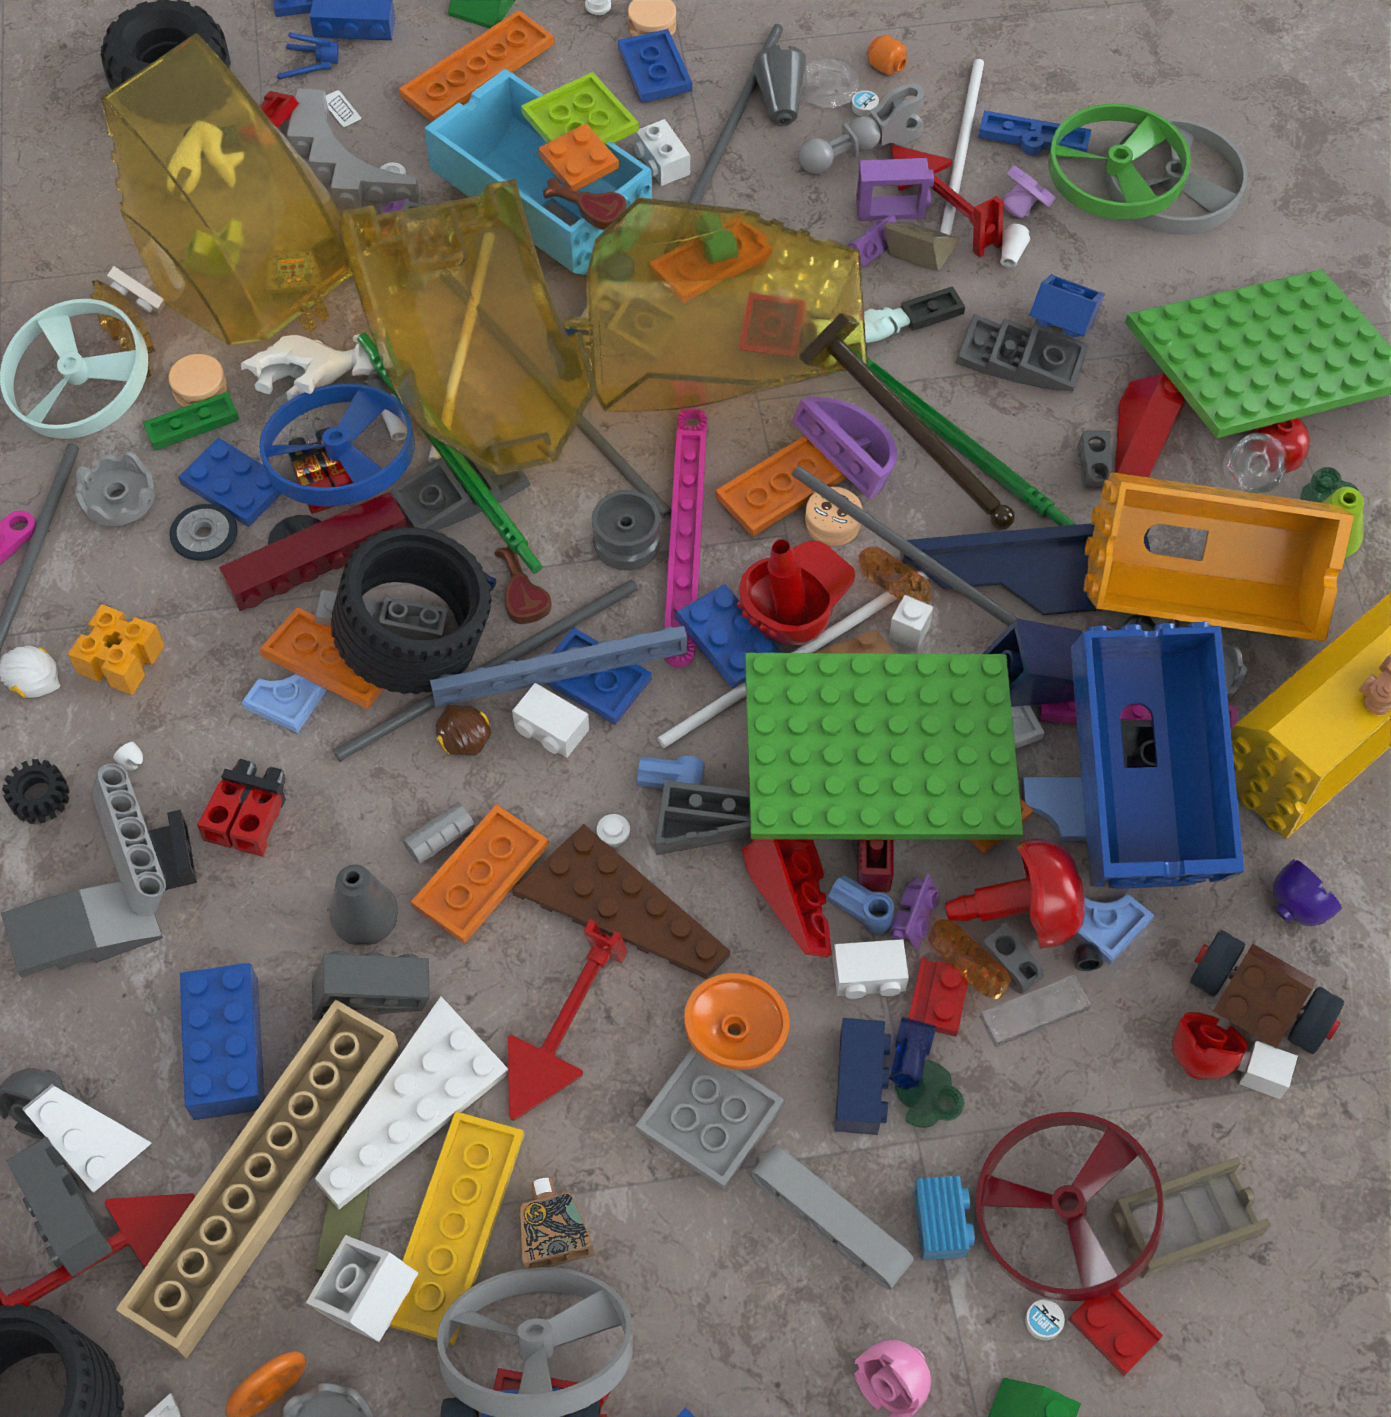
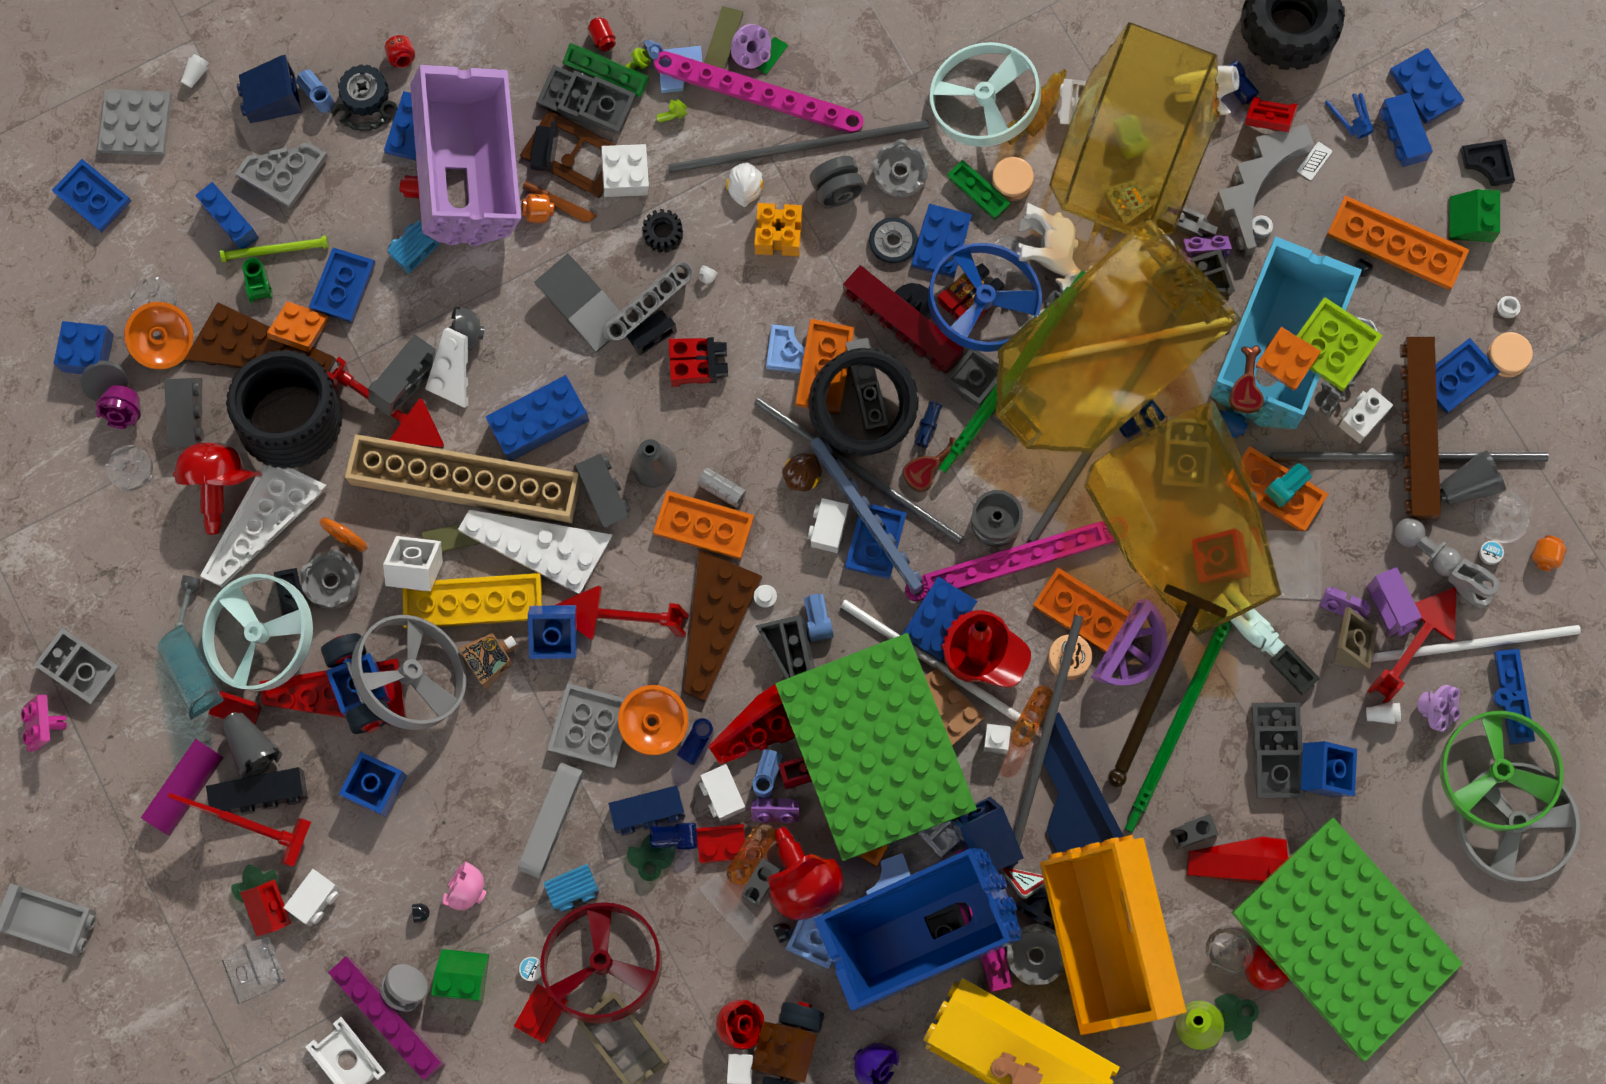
camera: 75 degrees right, 15 degrees up
(92, 556) = (837, 181): none -> dark grey wheel
(554, 1115) = (552, 632): none -> blue brick
(705, 105) = (1421, 428): none -> reddish brown brick
(786, 980) = (694, 743): none -> clear blue piece

